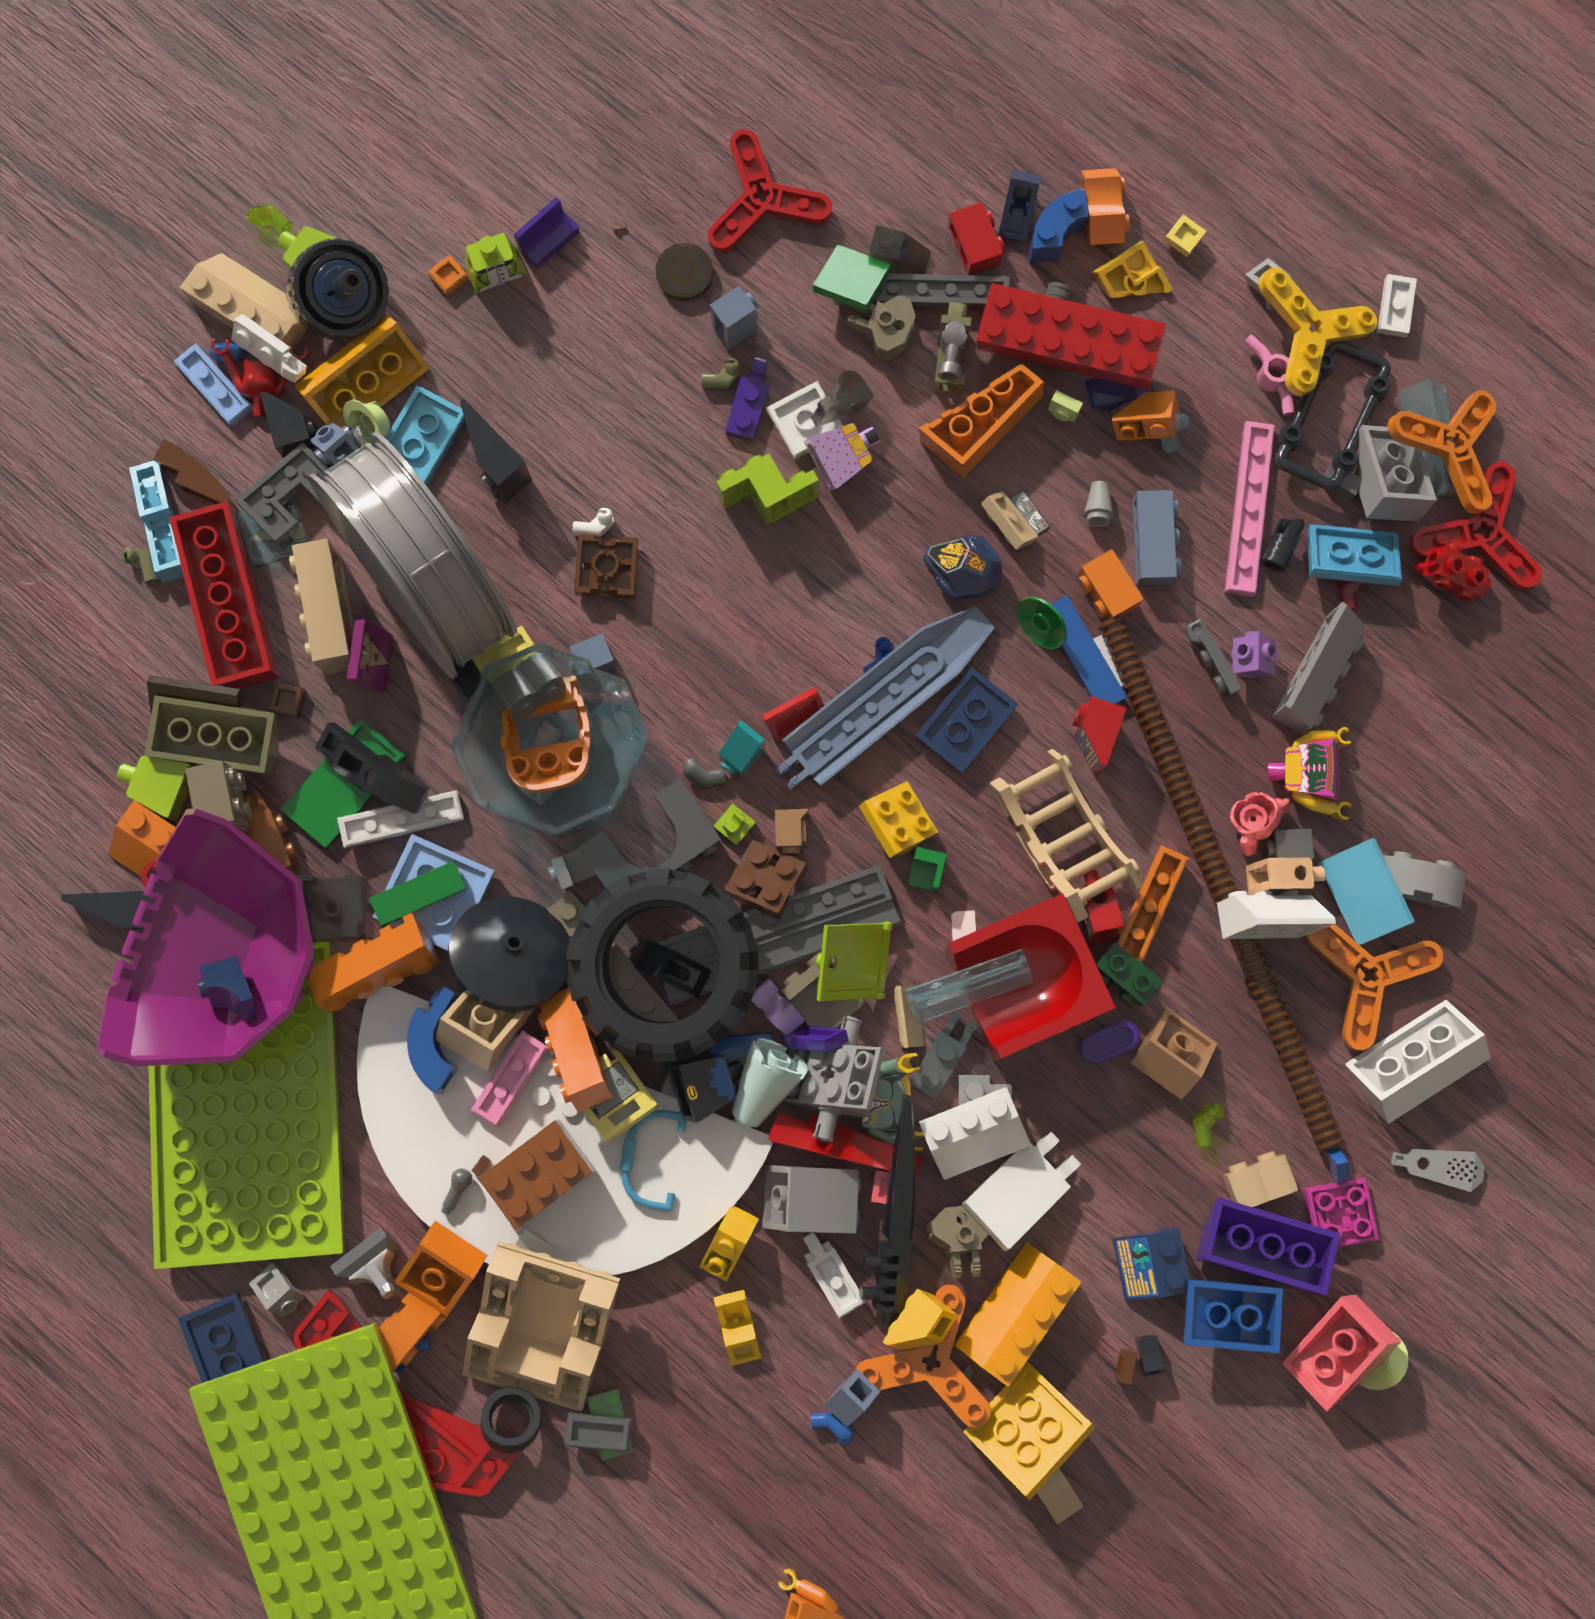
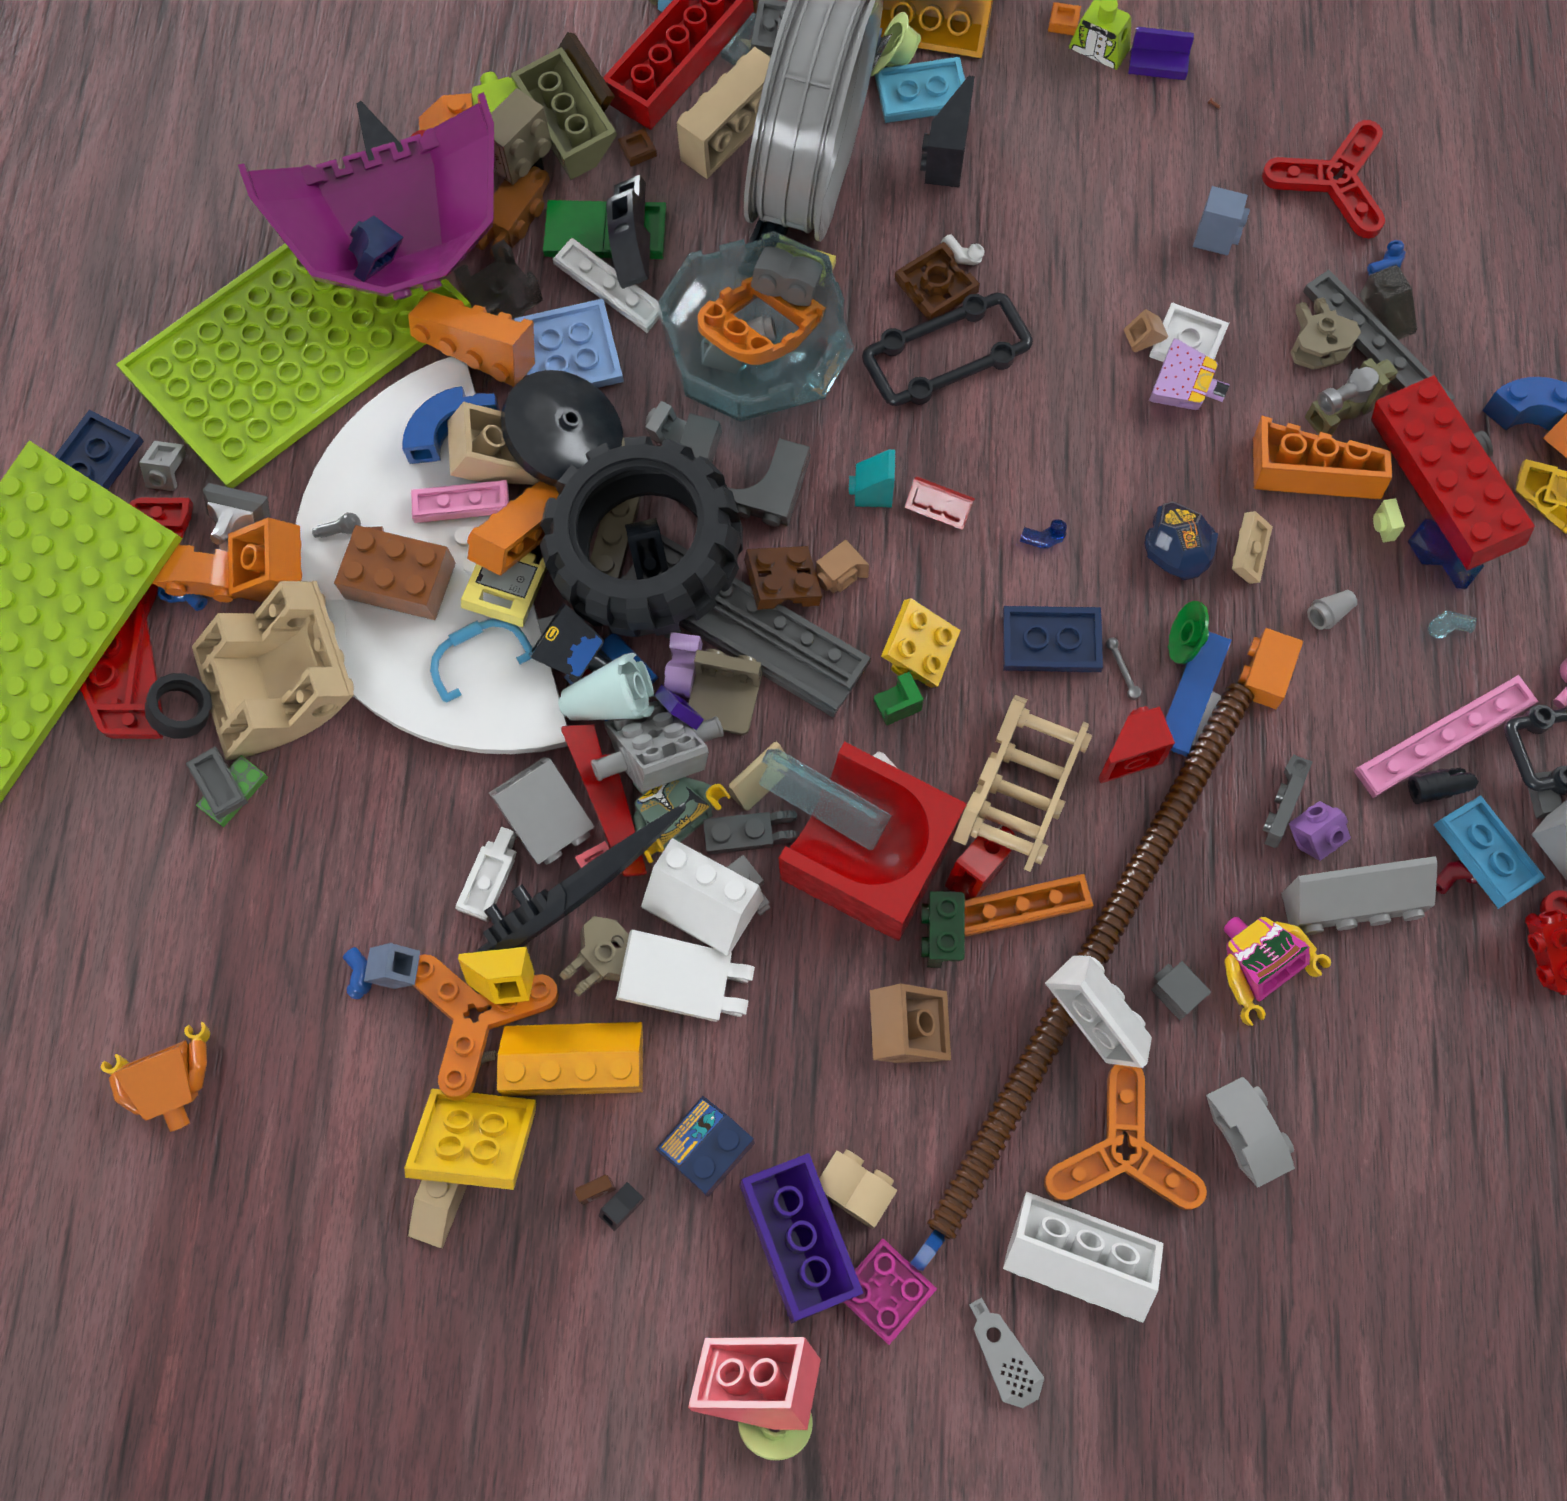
camera: 55 degrees right, 10 degrees down
(370, 656) = (717, 167): magenta tile -> none
(418, 893) = (562, 334): green tile -> none
(596, 651) = (860, 321): sand blue brick -> none
(684, 271) = (1224, 167): dark brown tile -> none
(688, 651) = (921, 388): none -> black bar
(701, 777) = (827, 472): dark grey arm -> none
(726, 376) = (1165, 257): olive arm -> none
(728, 1243) = (454, 770): yellow slope -> none
(734, 824) = (809, 526): lime tile -> none
(737, 1327) = (386, 835): yellow slope -> none
(749, 403) = (1164, 288): dark purple plate -> none
(767, 488) = (1104, 332): lime bracket -> none
(777, 444) = (1145, 331): none -> medium nougat slope
(845, 398) = (1235, 352): clear smoke plate -> none
(851, 278) = (1336, 280): tile -> none
(859, 961) = (772, 695): lime container -> none
(863, 221) = (1394, 255): none -> blue arm
(884, 696) = (1016, 557): sand blue hinge -> none
(976, 238) = (1460, 350): red brick -> none
(1019, 205) = (1523, 359): dark blue arch -> none
(1029, 512) = (1274, 563): light grey sticker -> none
(1049, 695) = (1134, 692): none -> flat silver hinge
(1109, 1042) = (874, 963): dark purple tile -> none
(1148, 417) = (1443, 590): orange slope -> none
(1155, 537) = (1347, 674): sand blue brick -> none
(1204, 1121) = (871, 1099): clear neon green arm -> none
(1233, 1316) = (710, 1247): blue slope -> none
(1267, 815) = (1192, 940): coral hair -> none
(1283, 875) = (1146, 990): light nougat torso -> none
(1366, 892) = (1197, 1087): medium azure tile -> none

